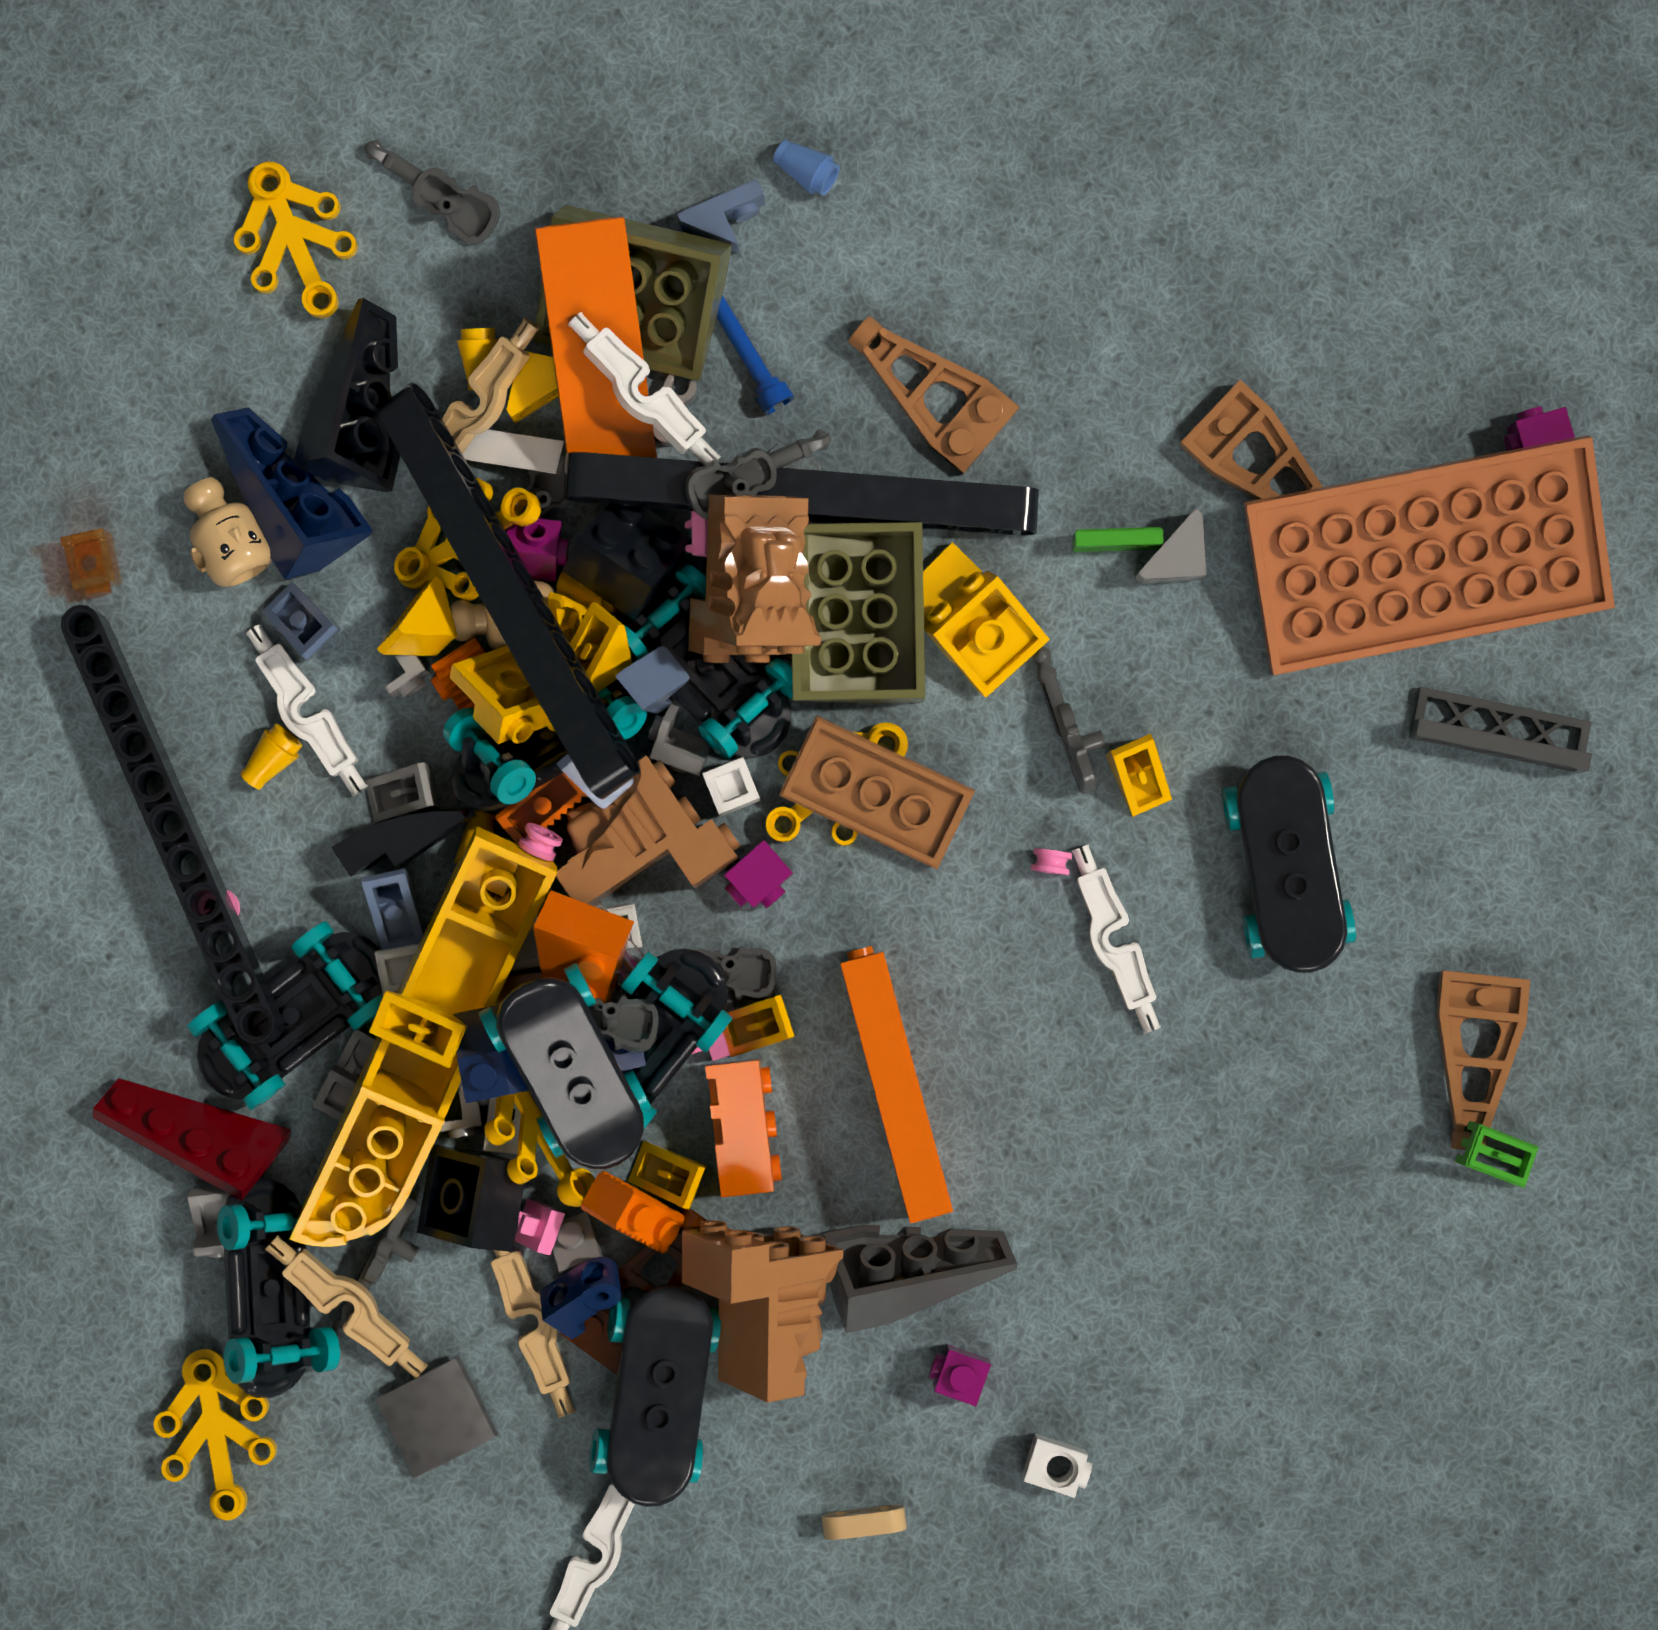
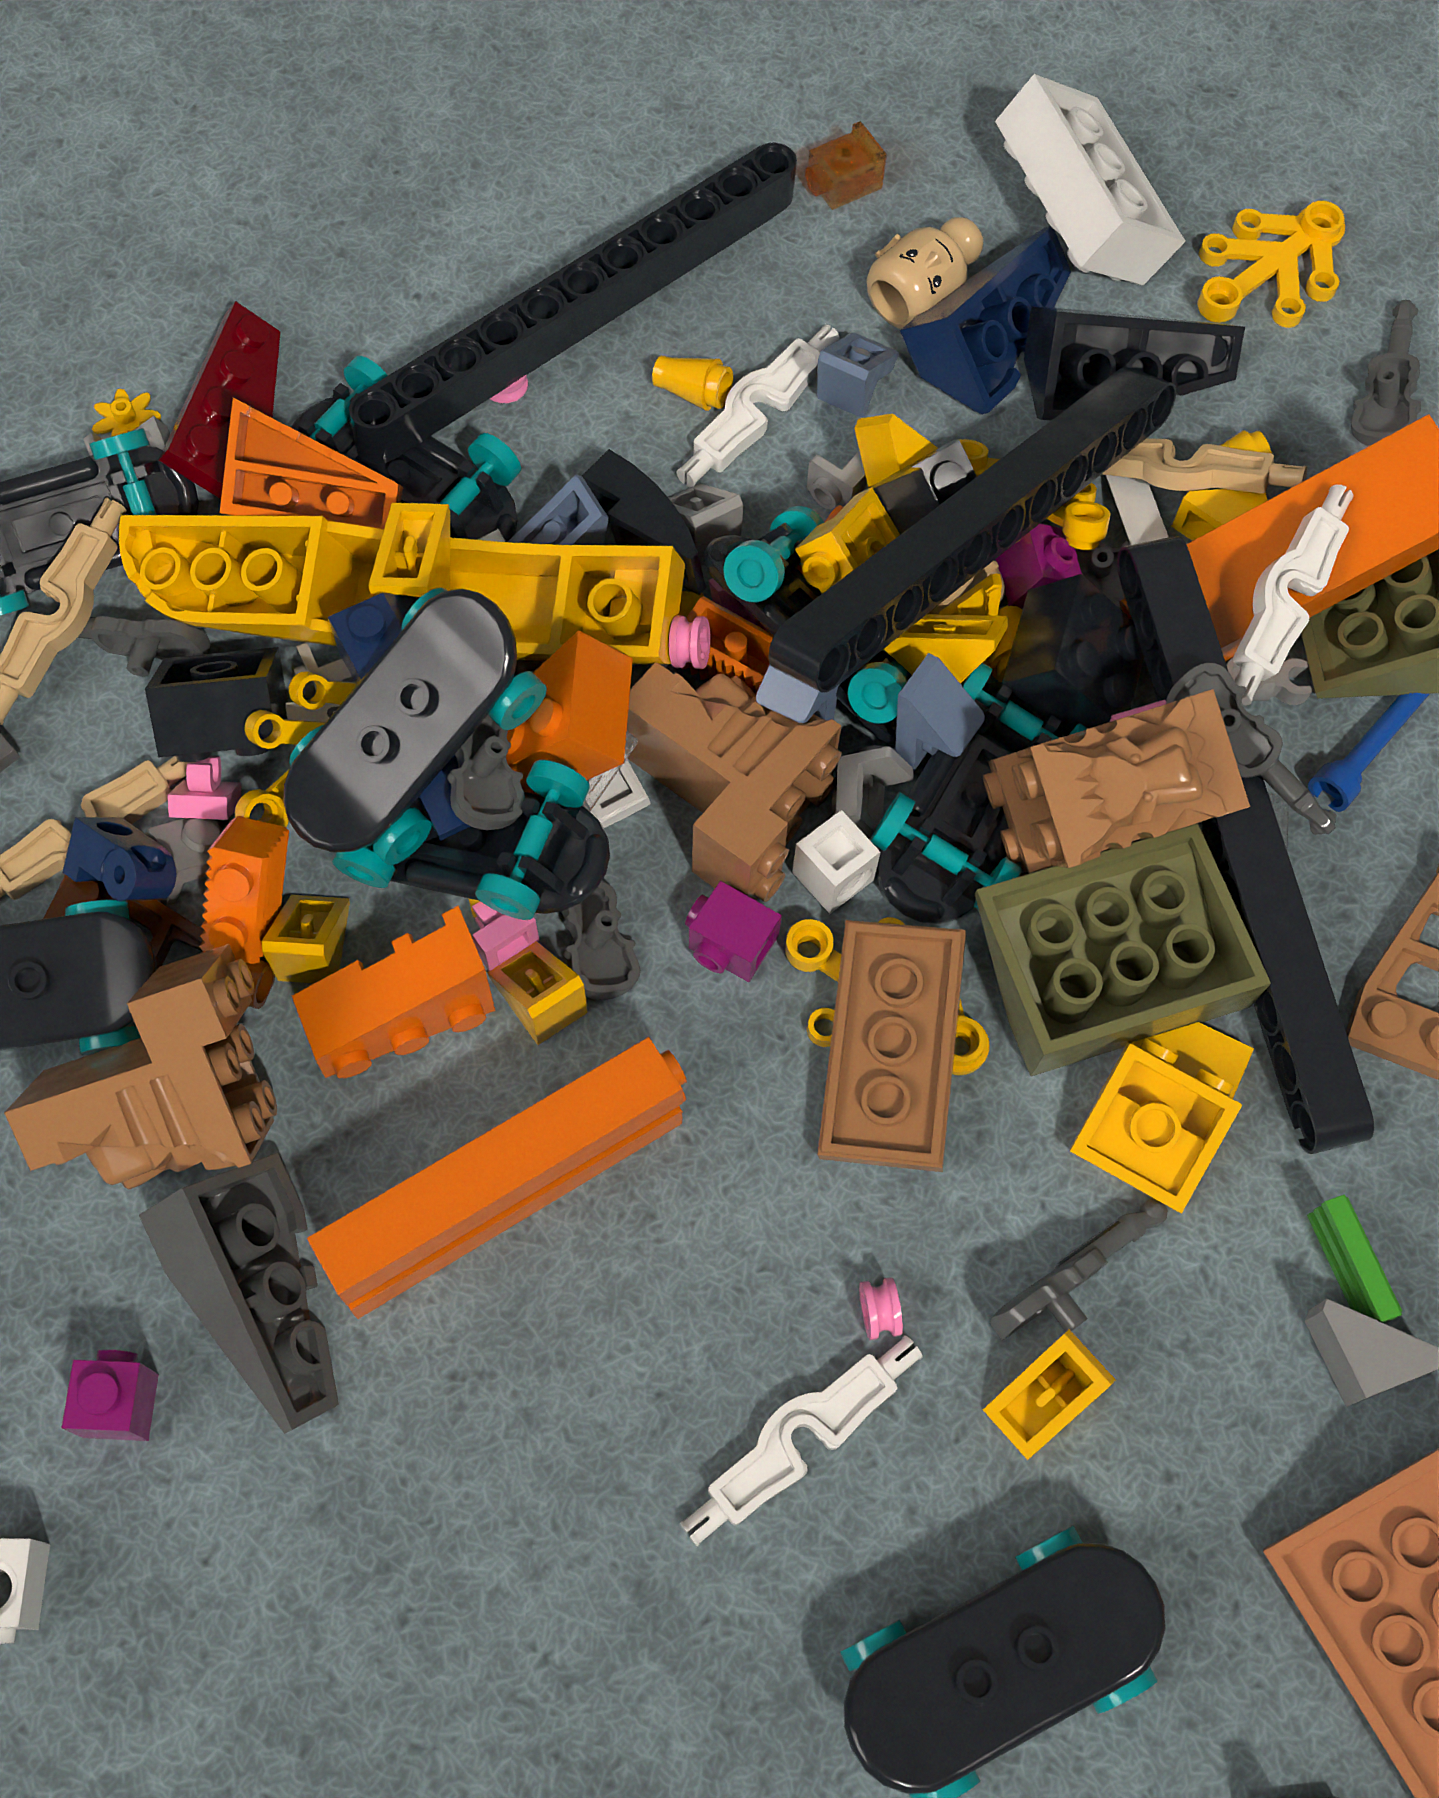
camera: 70 degrees right, 20 degrees down
(171, 1219) = (122, 414): none -> yellow plant
(184, 370) = (1088, 182): none -> white brick
(310, 1090) = (289, 474): none -> orange wedge
(459, 622) = (924, 484): none -> black slope

